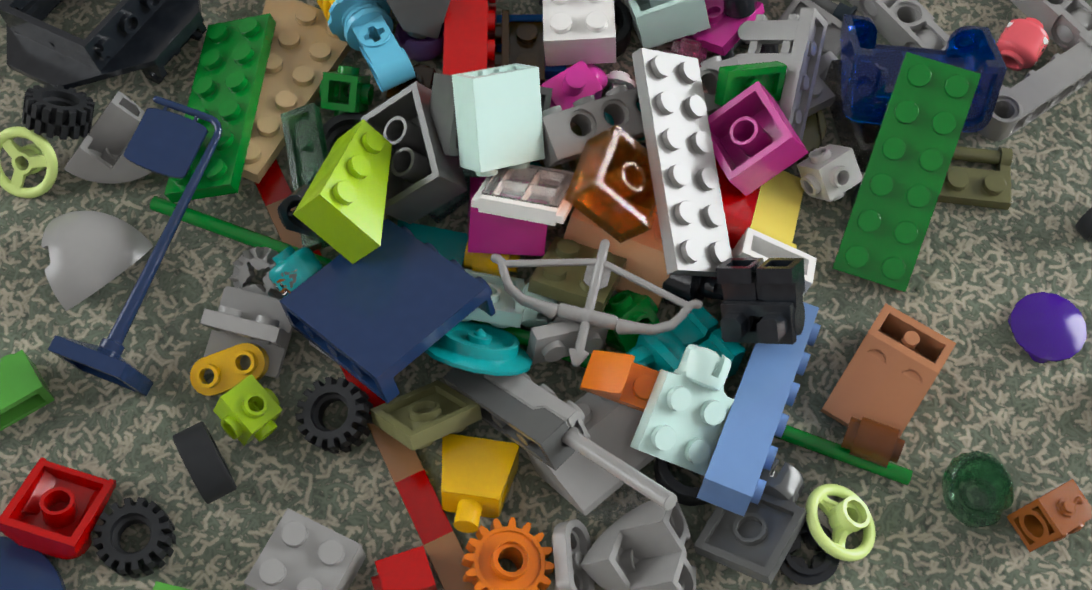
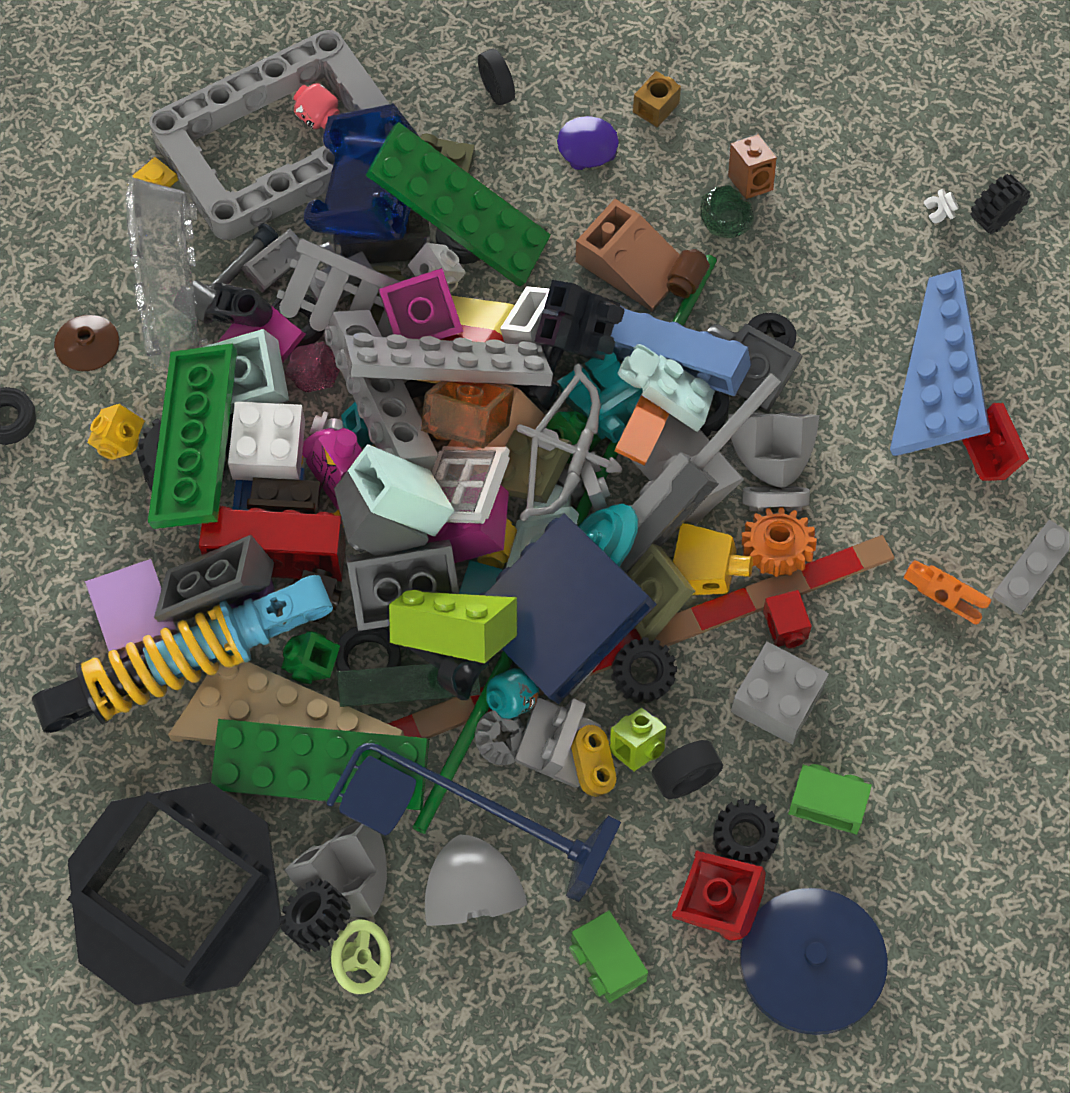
camera: 85 degrees left, 0 degrees up
(737, 78) = (366, 302): green plate -> none
(844, 519) = (749, 302): yellowish green piece -> none

